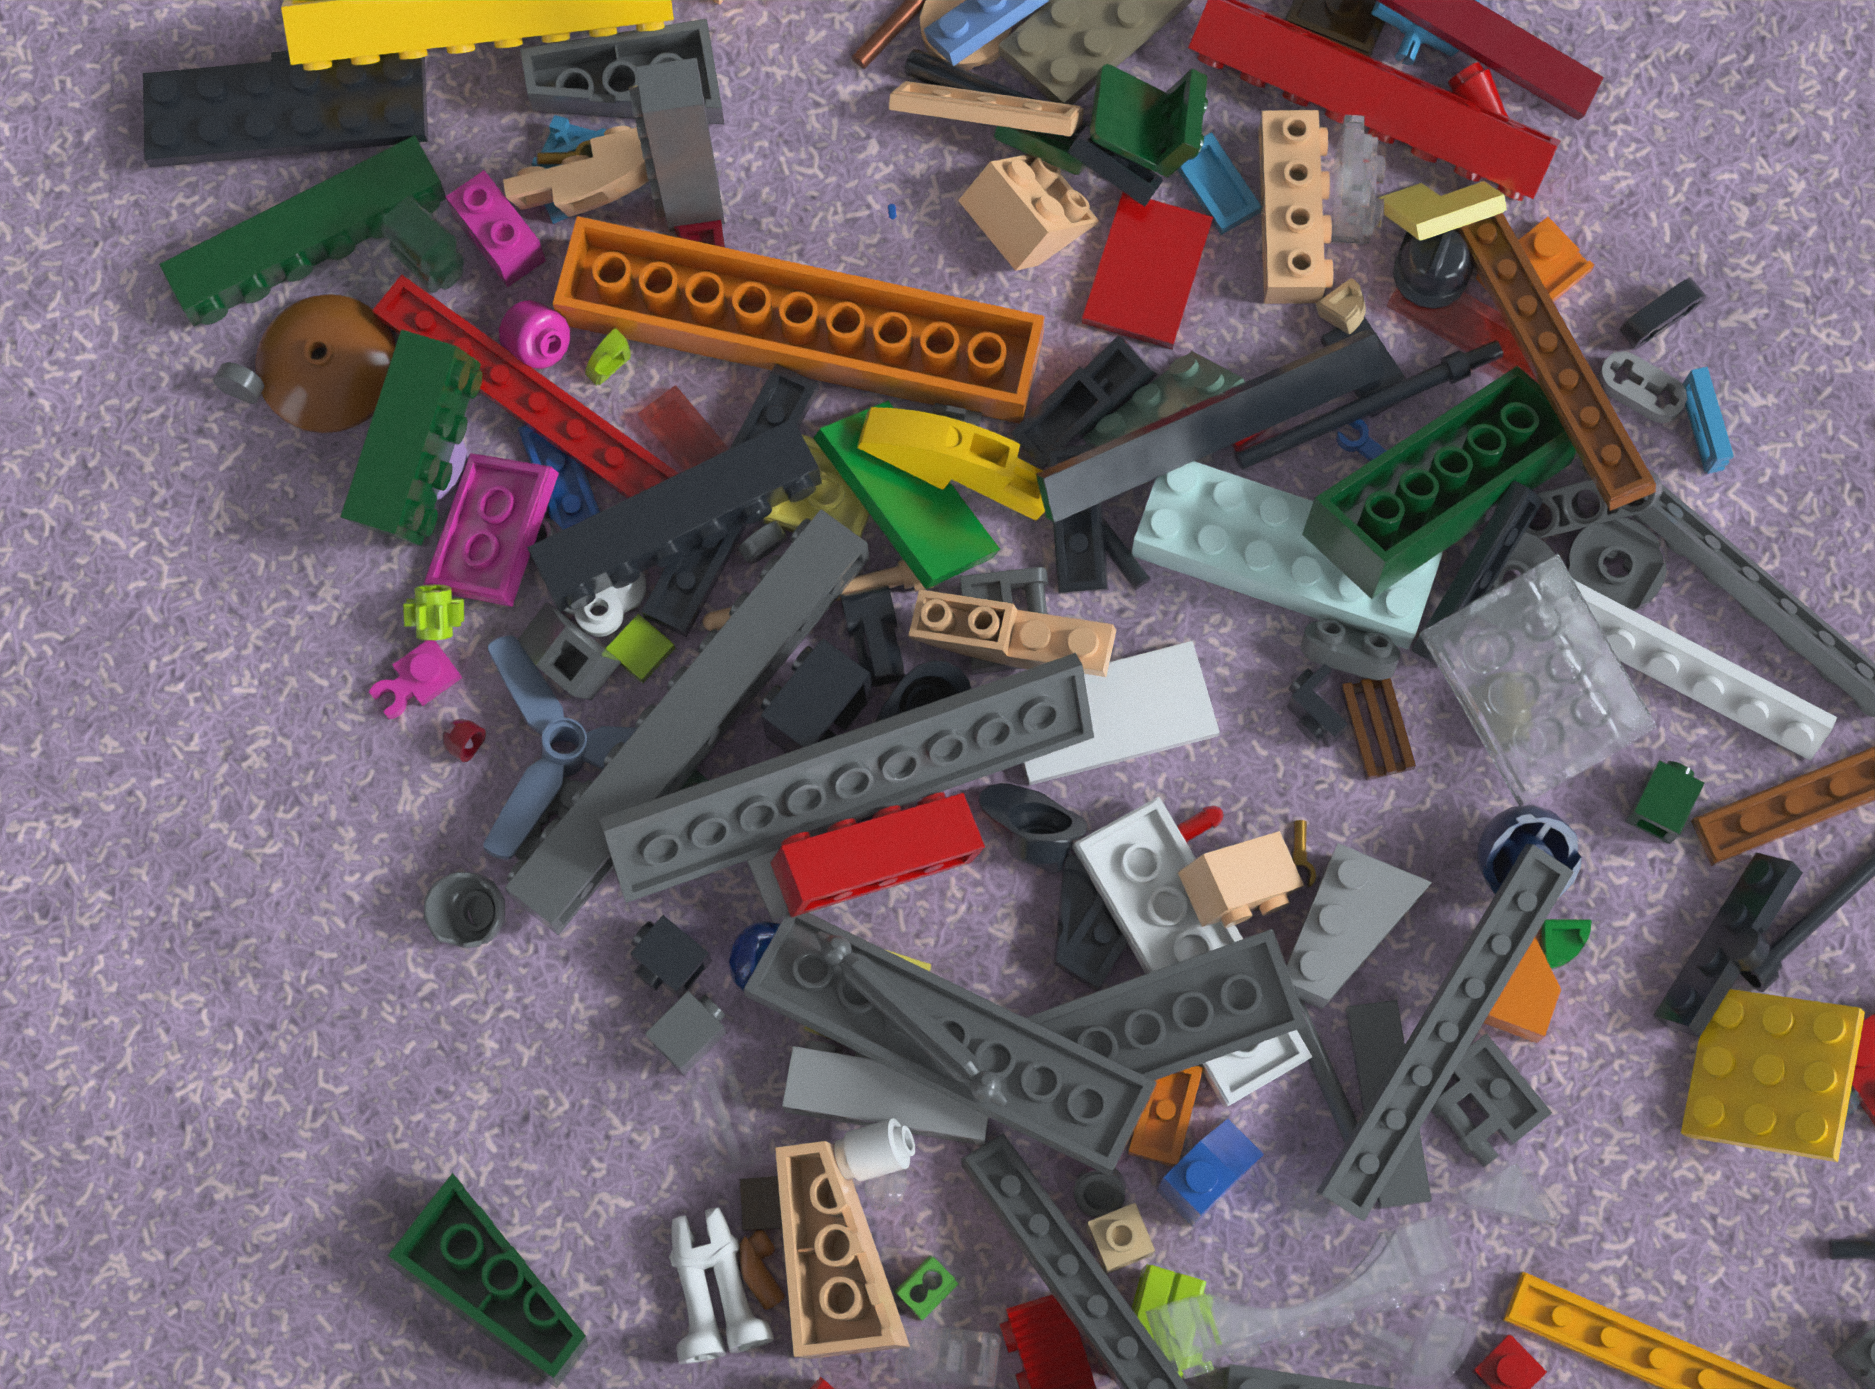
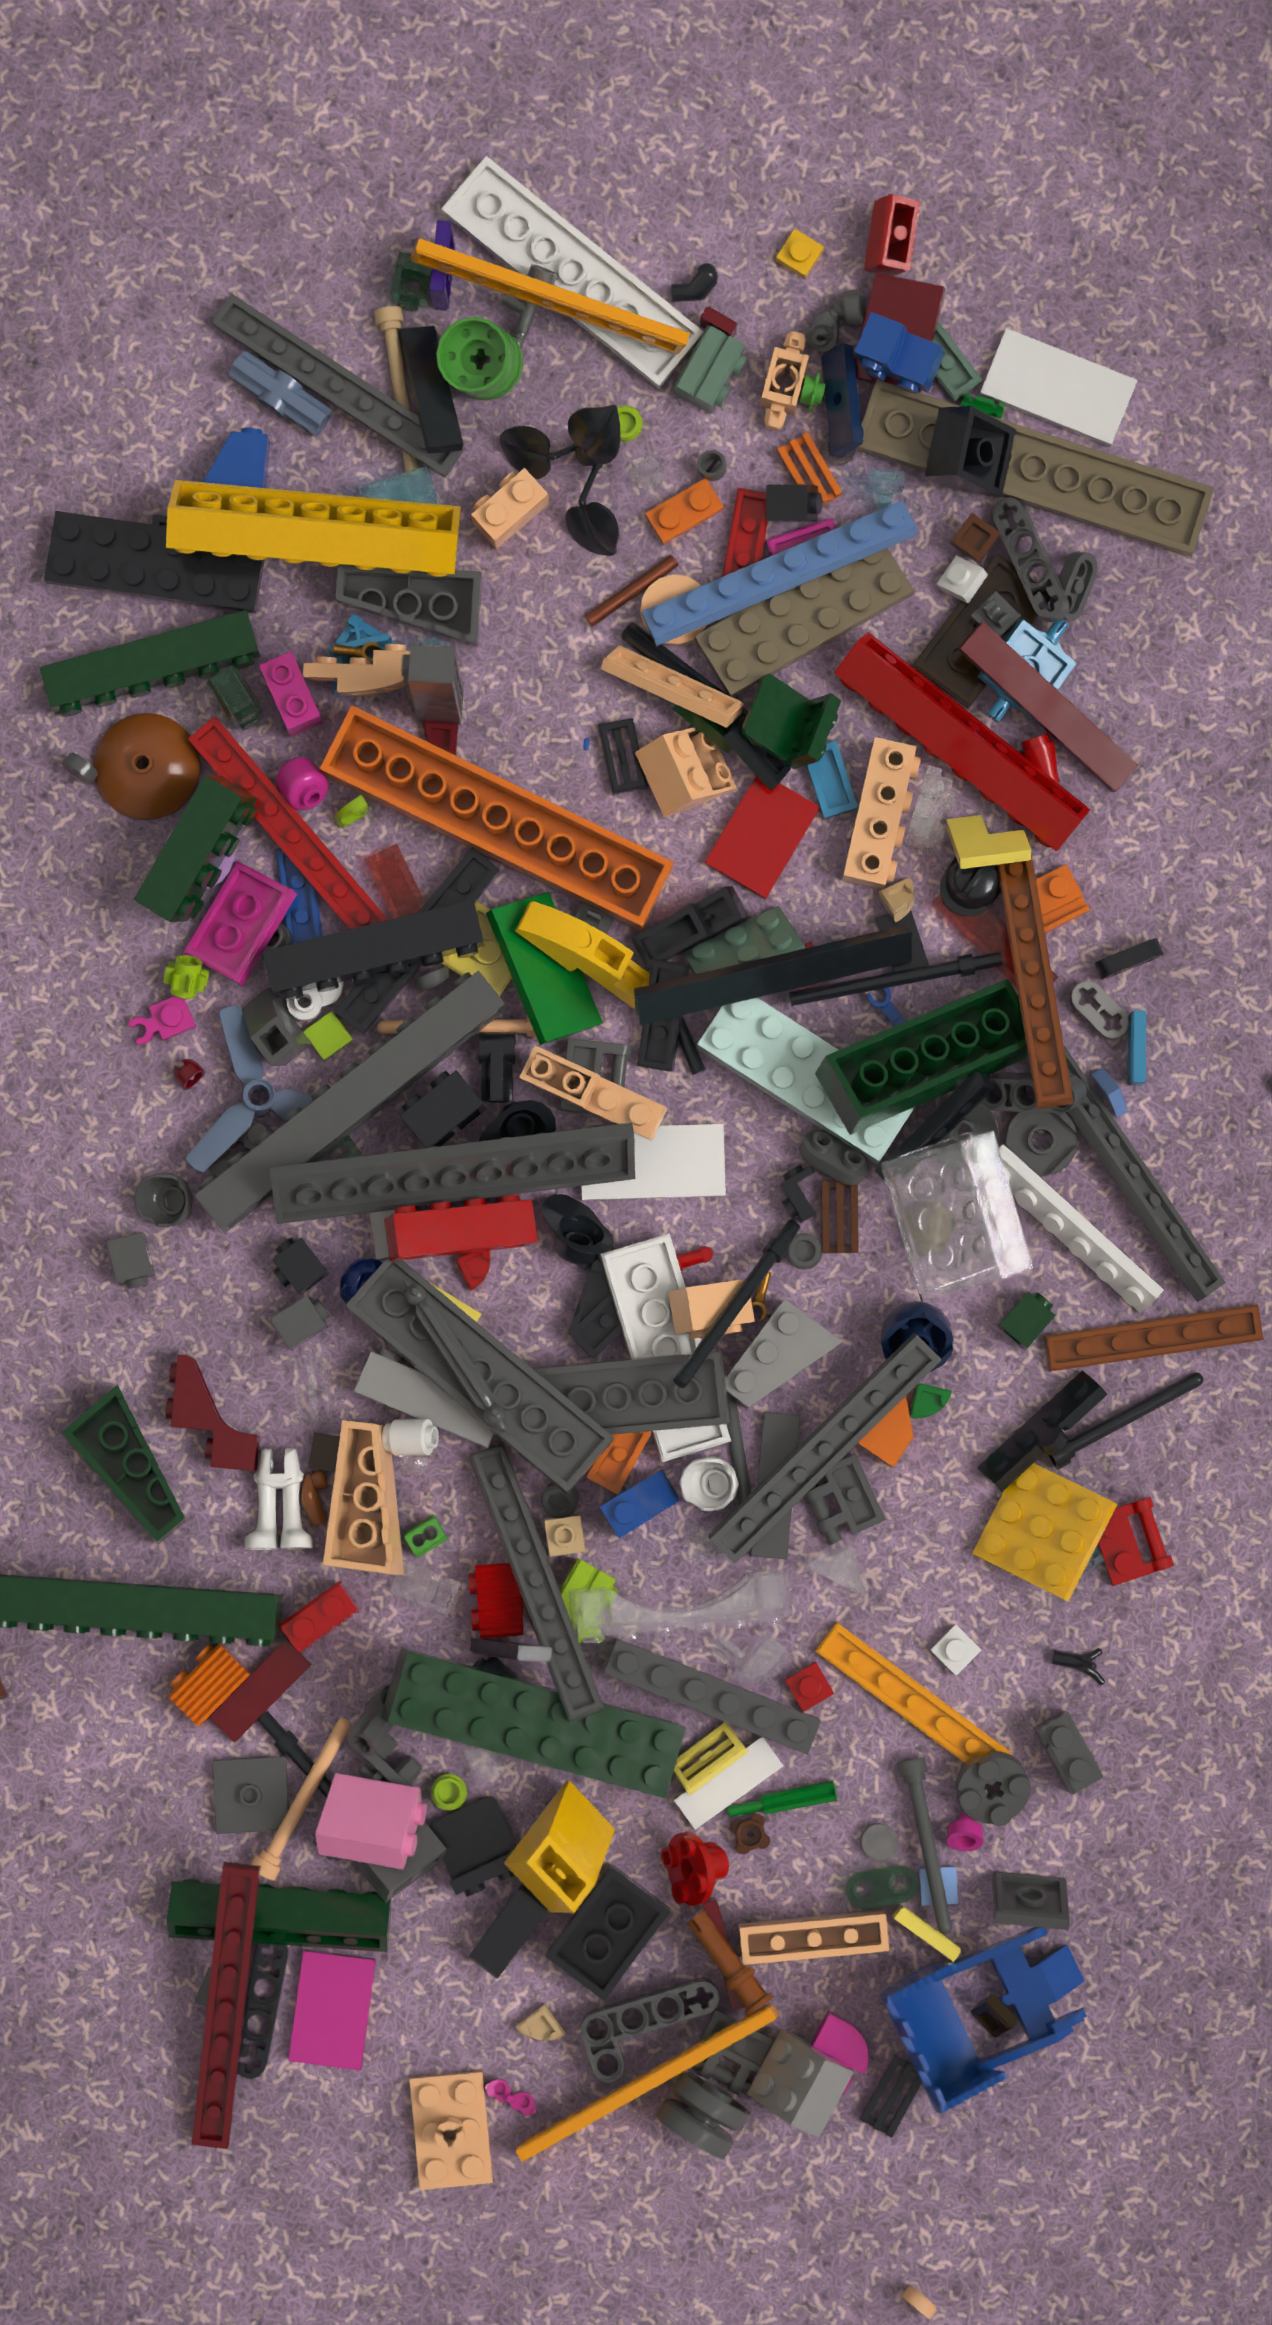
camera: 10 degrees right, 10 degrees up
(437, 1001) = (131, 1260): none -> dark grey brick
(569, 1187) = (195, 1409): none -> dark red arch
(906, 906) = (474, 1267): none -> red tile
(957, 248) = (628, 785): none -> black tile
(1303, 792) = (772, 1253): none -> black bar
(1314, 1113) = (721, 1479): none -> white hair
(1343, 782) = (804, 1251): none -> dark grey tile
(1688, 485) = (1110, 1092): none -> medium blue tile
(1695, 1271) = (955, 1650): none -> white plate

